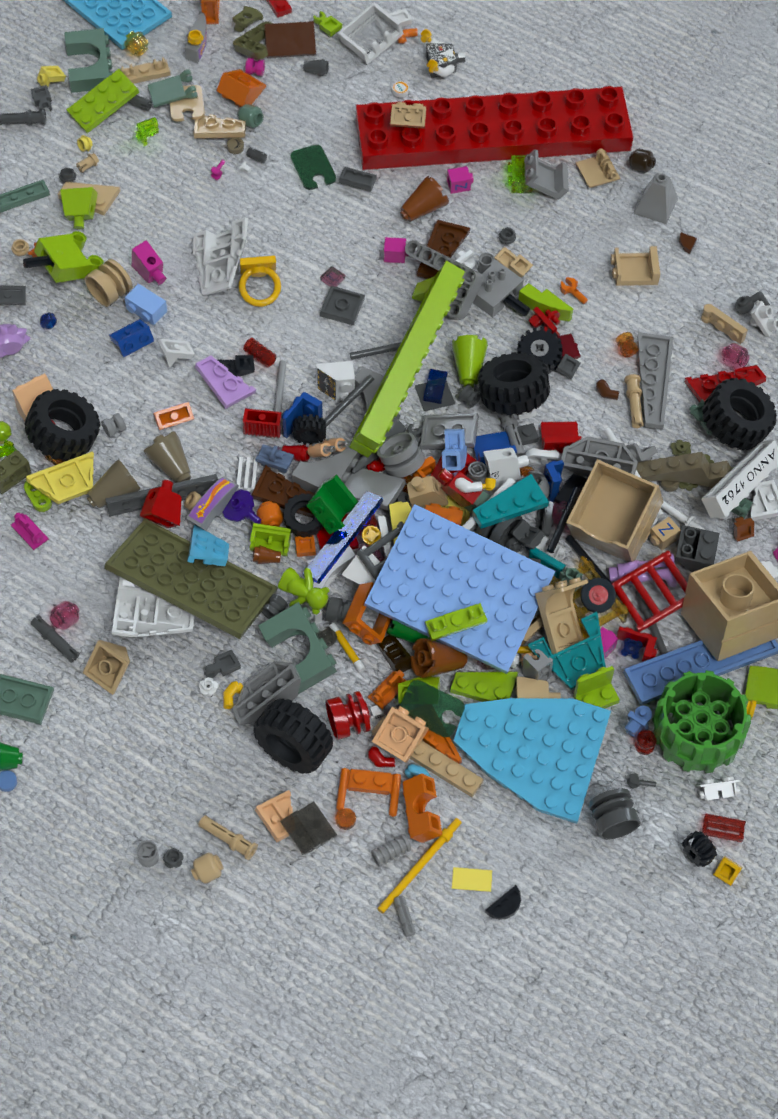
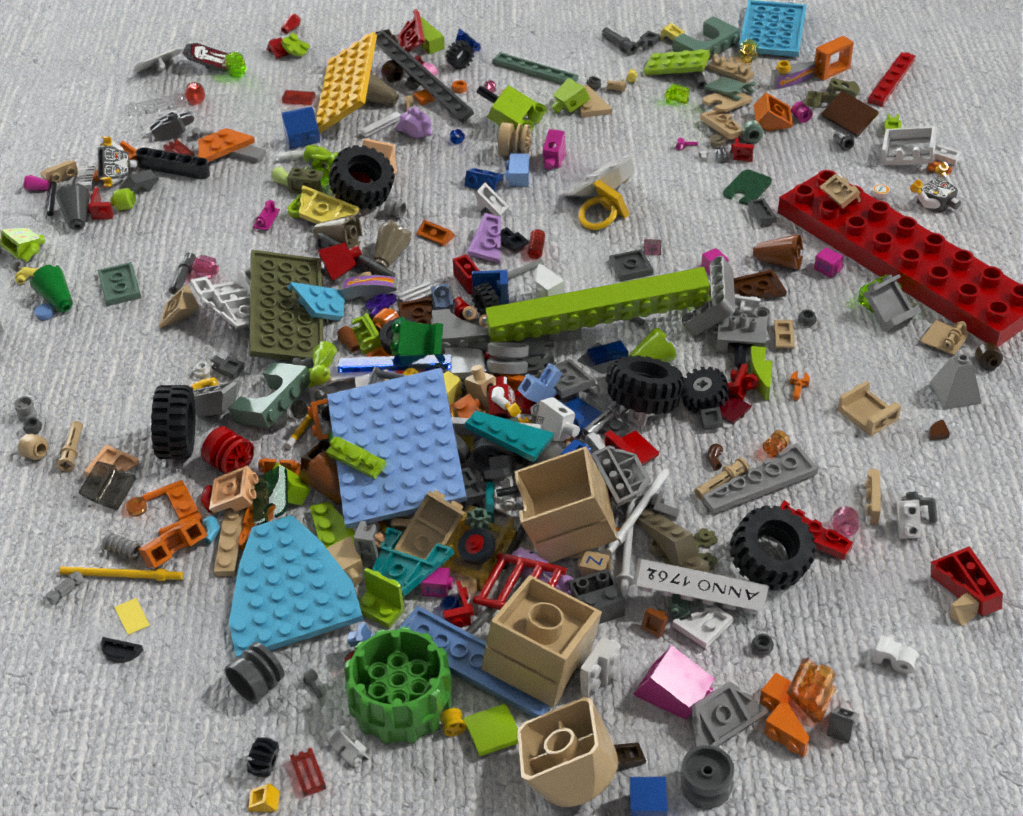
camera: 60 degrees right, 15 degrees down
(268, 141) = (741, 151): none -> red bracket

